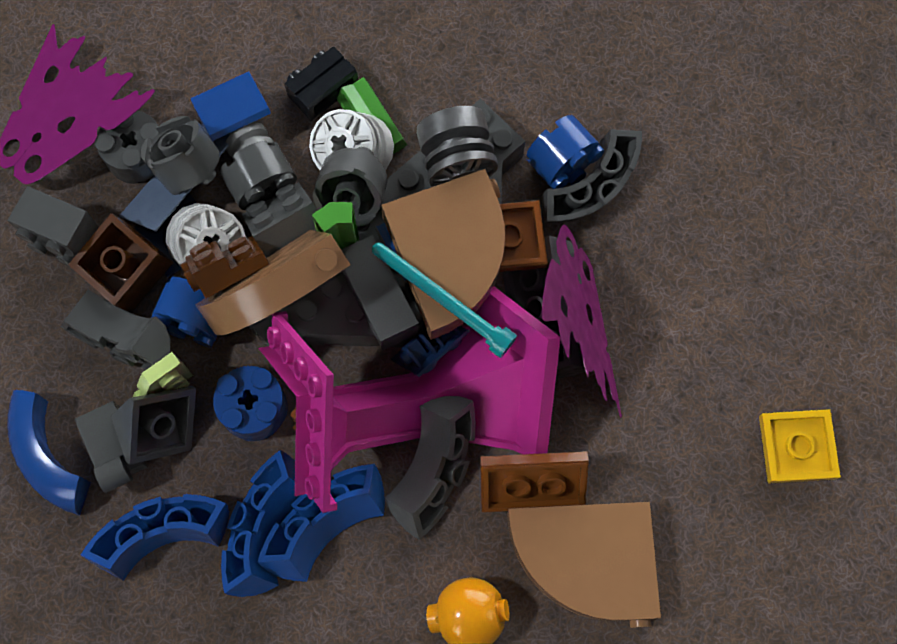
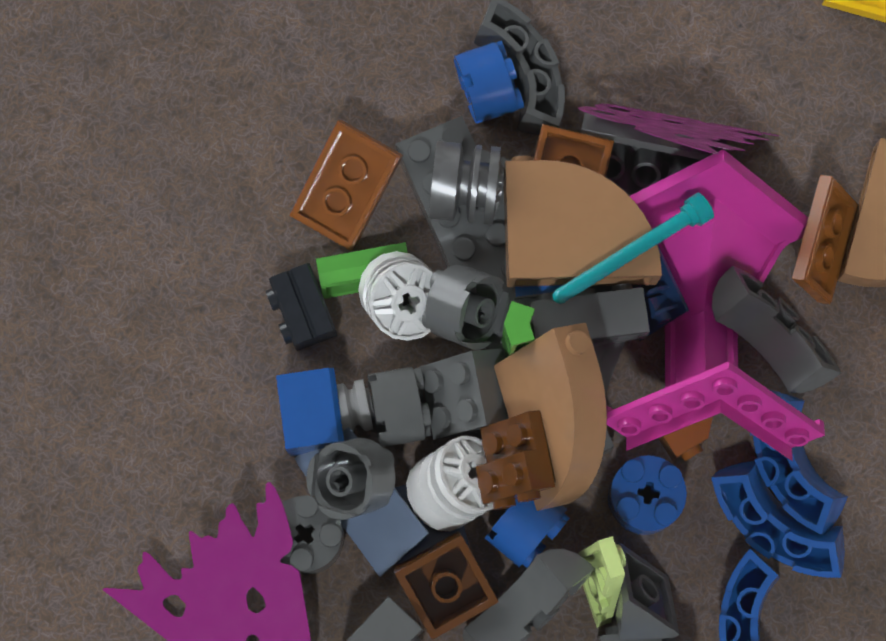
camera: 70 degrees left, 5 degrees up
(434, 77) = (346, 185): none -> dark orange tile

